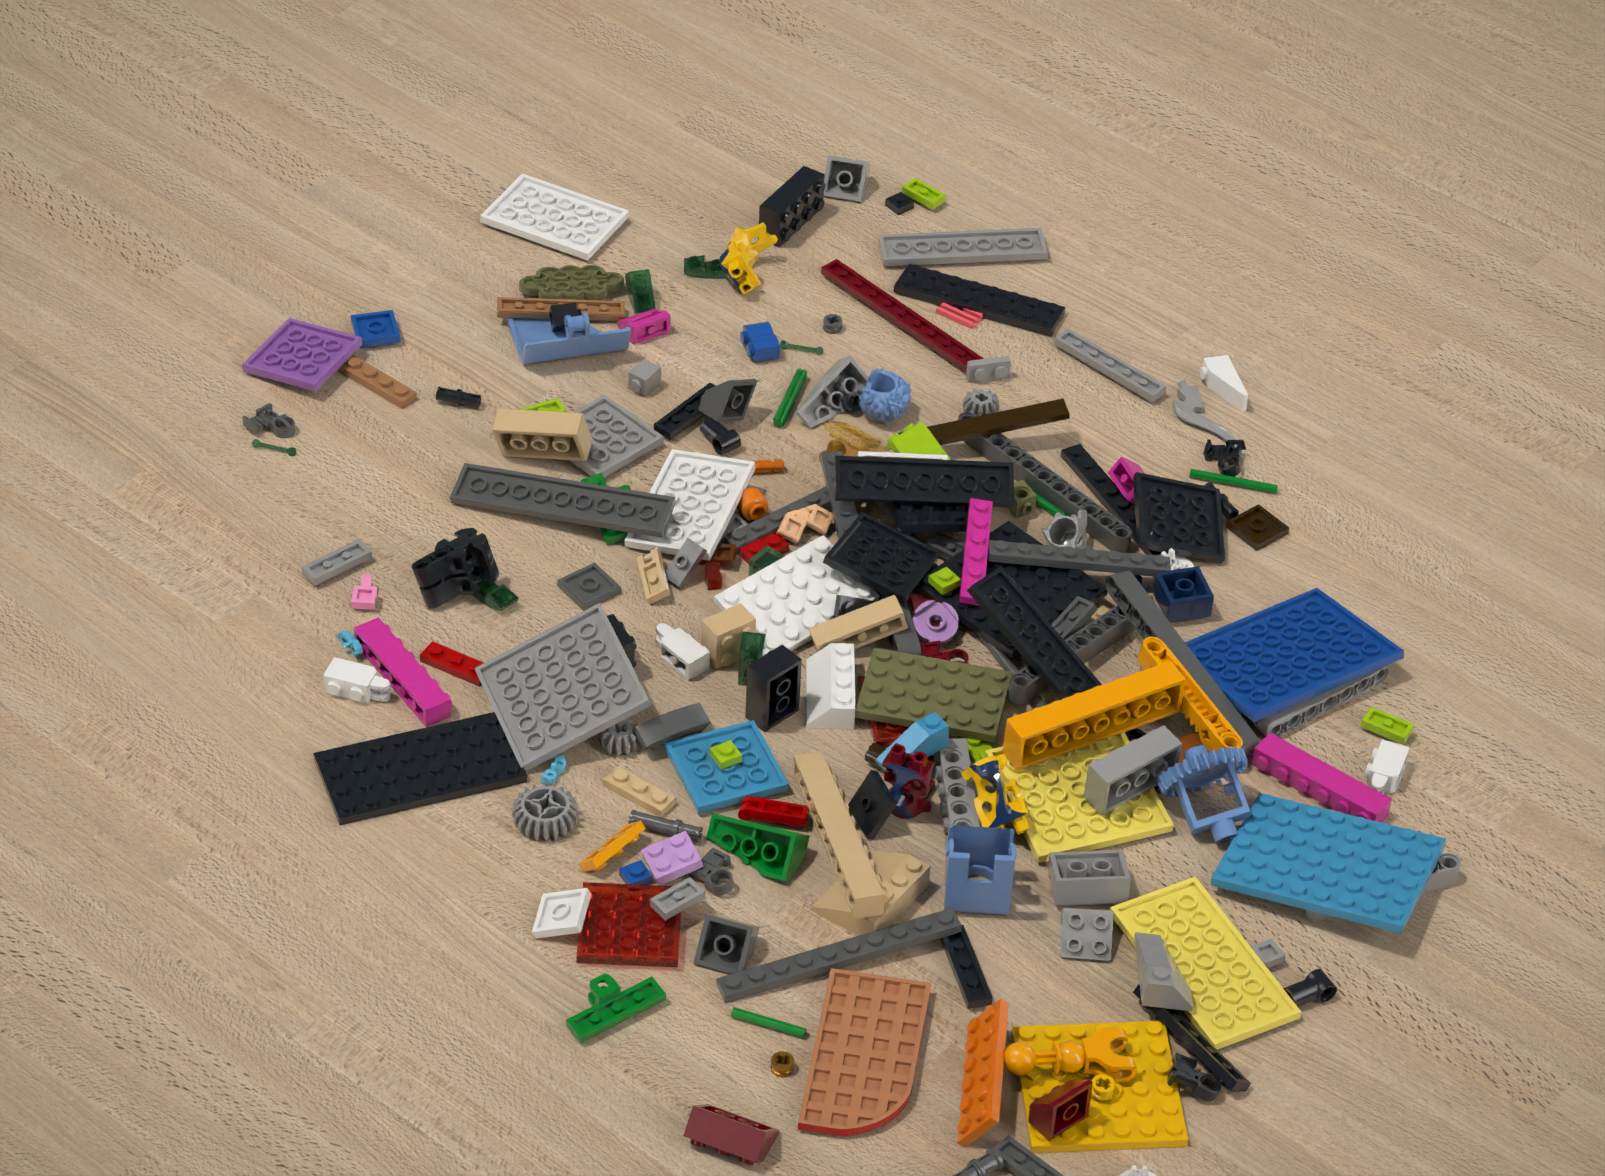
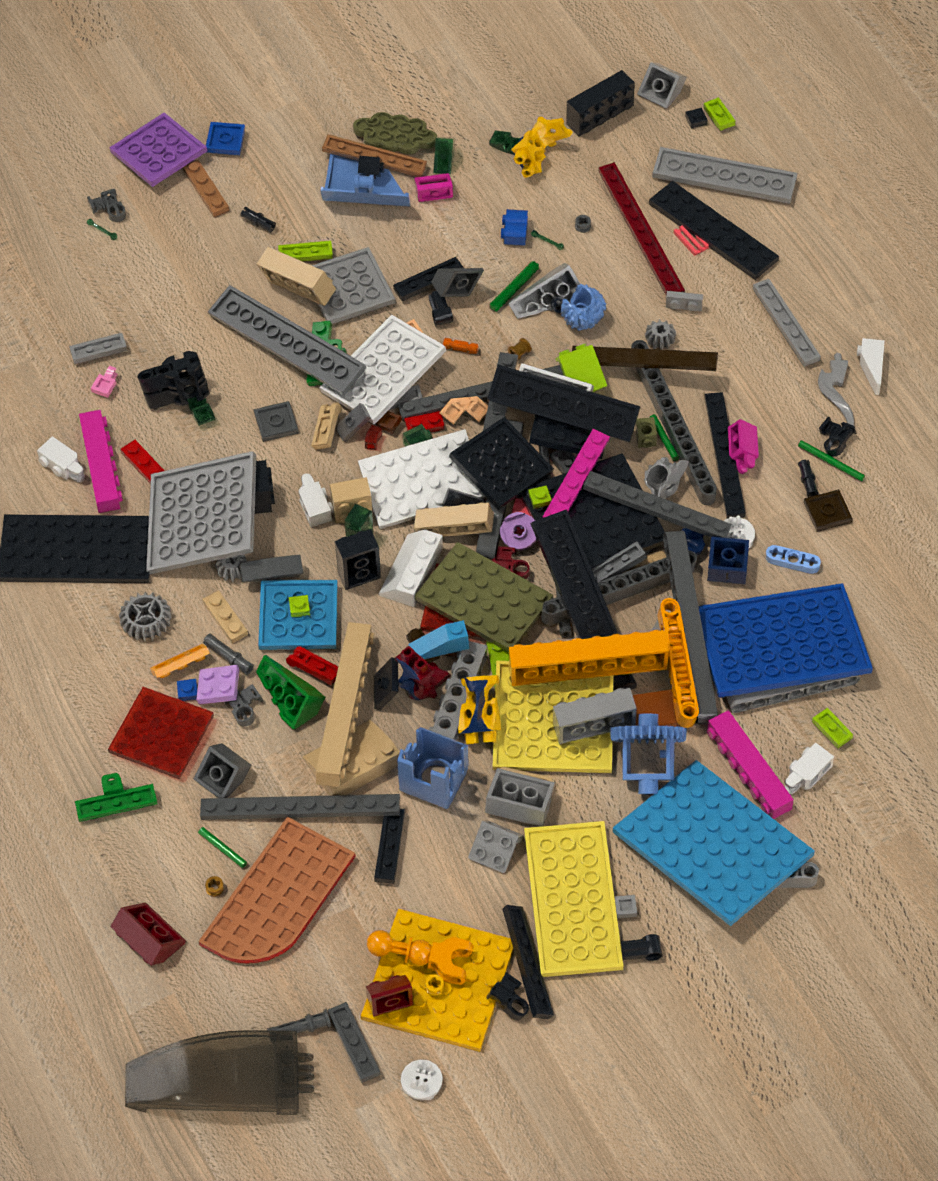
camera: 25 degrees right, 15 degrees up
(349, 640) = (75, 422): medium azure piece -> none
(554, 216) = (412, 64): white plate -> none
(556, 768) = (172, 578): medium azure piece -> none
(561, 913) = (113, 709): white plate -> none
(644, 378) = (407, 239): light grey brick -> none
(677, 898) = (200, 723): light grey plate -> none
(752, 504) = (432, 381): orange head -> none
(854, 436) = (541, 337): clear yellow plate -> none
(983, 1073) = (351, 944): orange plate -> none
(1159, 975) = (527, 902): light grey wedge -> none
(1178, 517) = (760, 488): black plate -> none
(1269, 580) = (807, 557): none -> light blue beam

